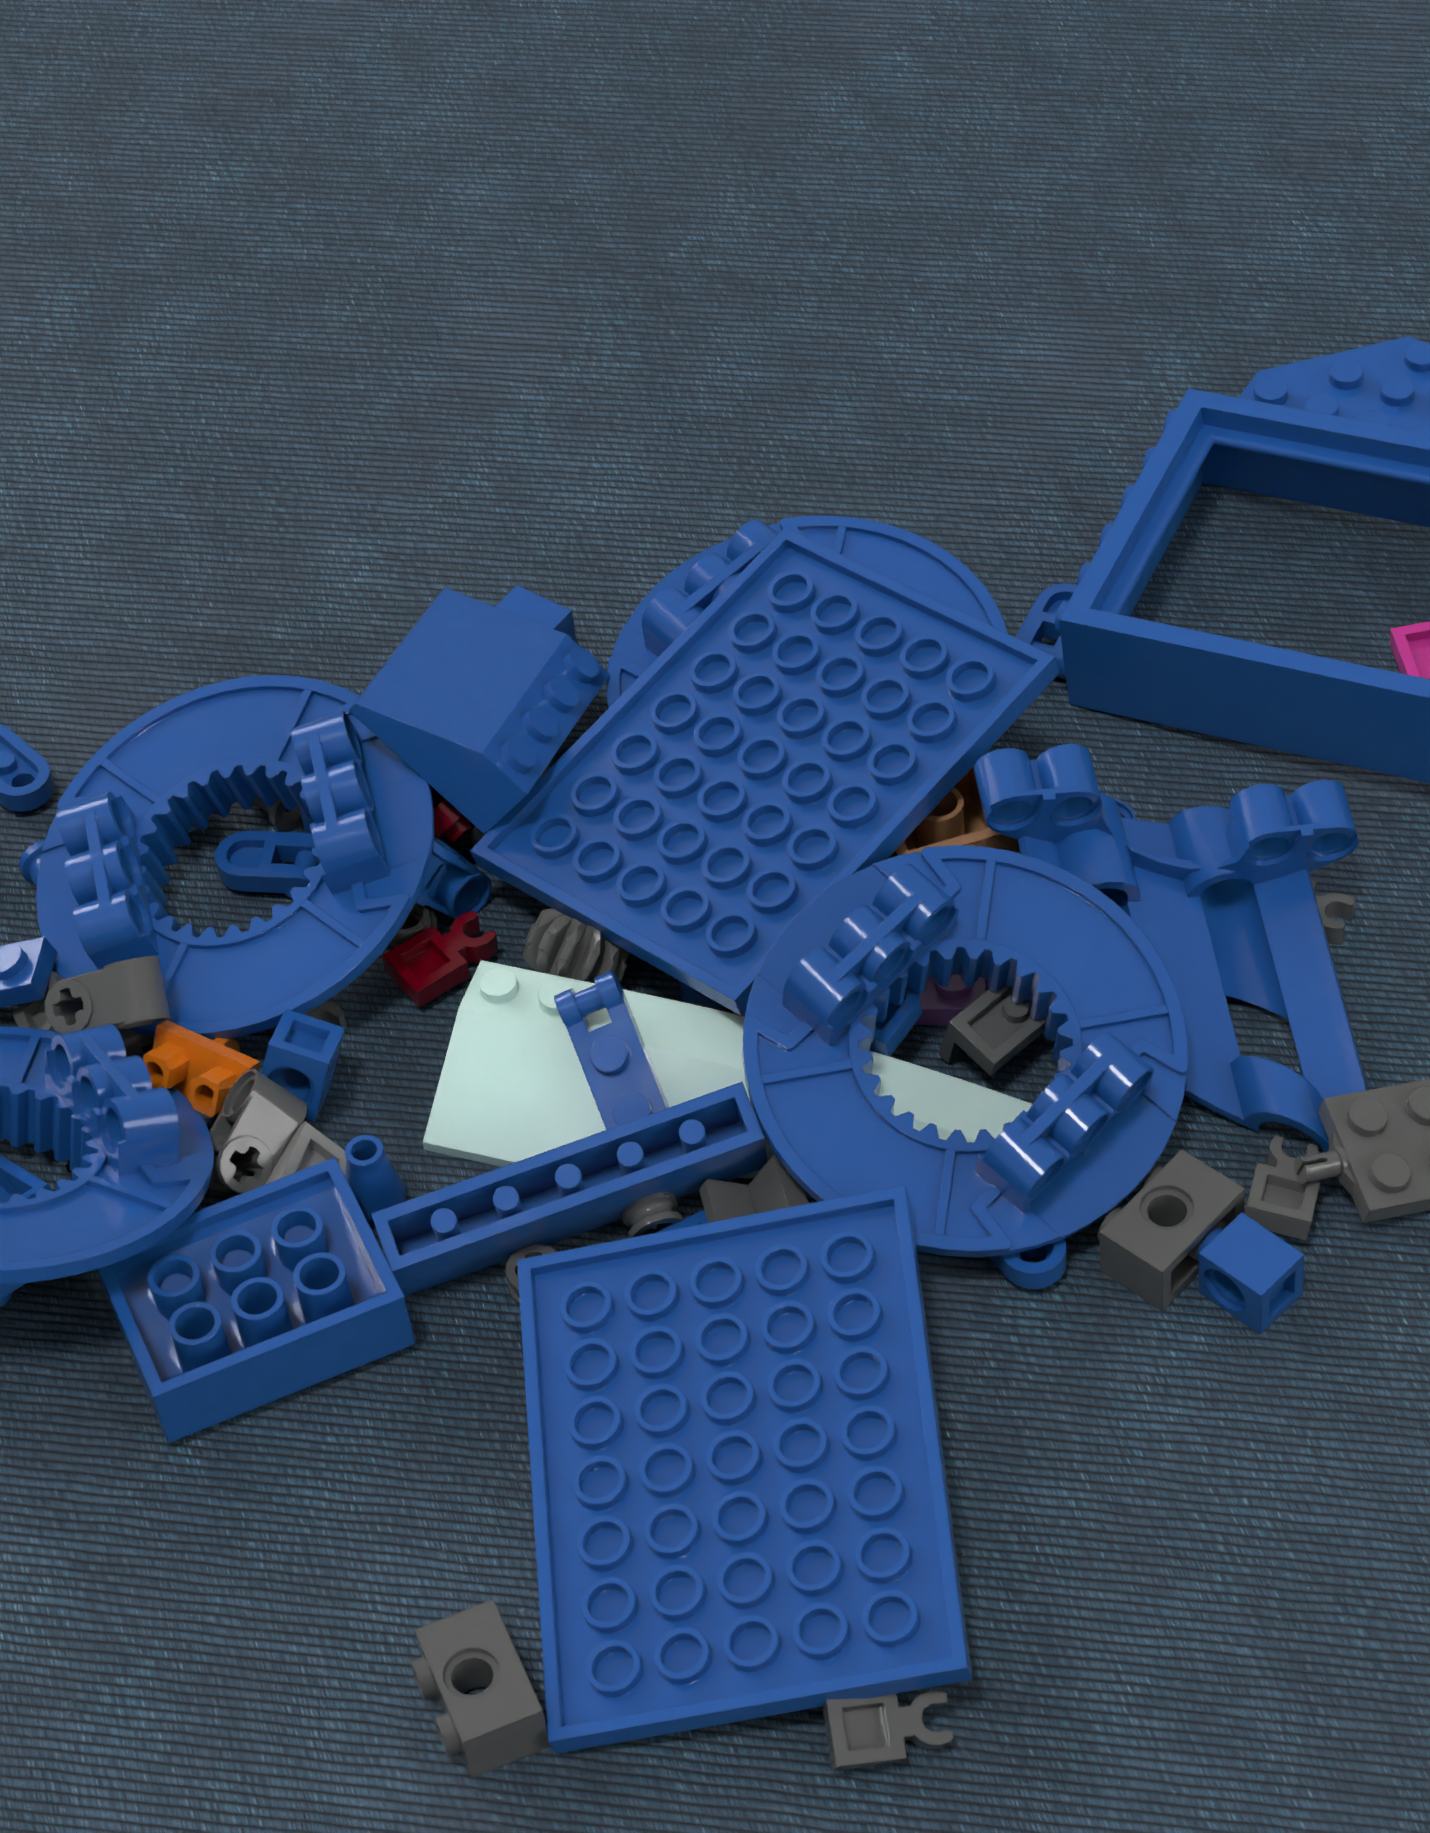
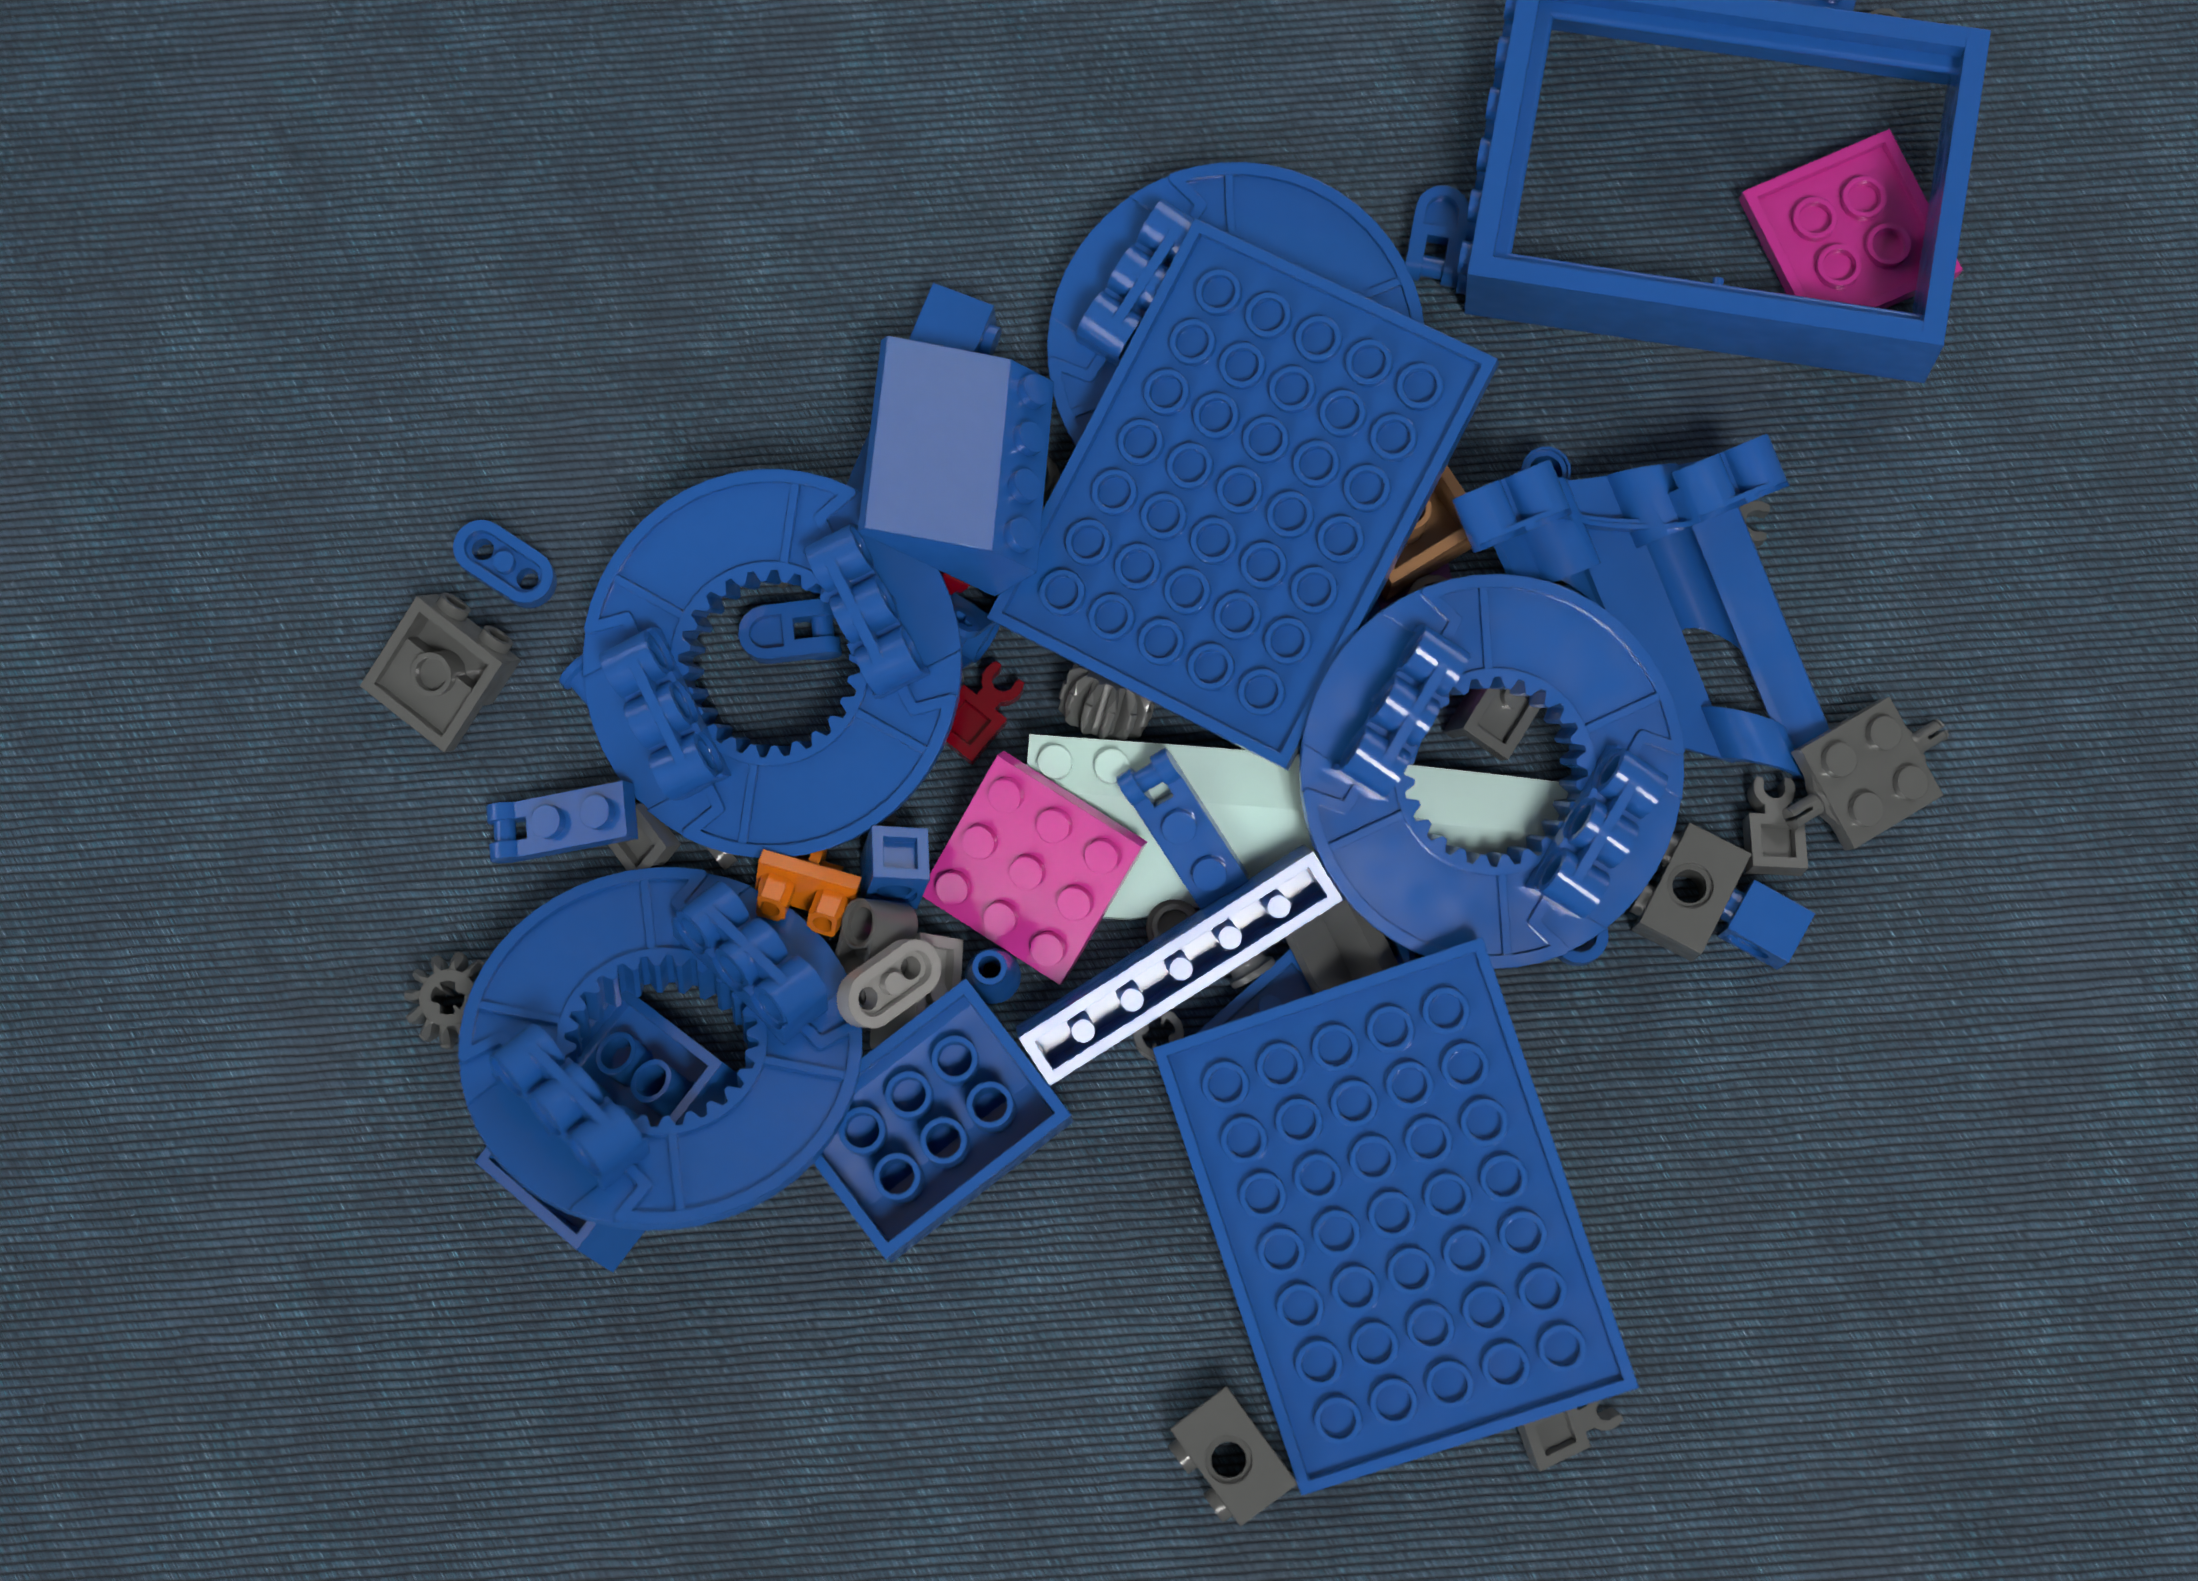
camera: 15 degrees left, 30 degrees up
(121, 994) = (712, 849): dark grey piece -> none
(246, 1143) = (885, 986): none -> light grey plate
(446, 1082) = (1032, 867): none -> dark pink plate

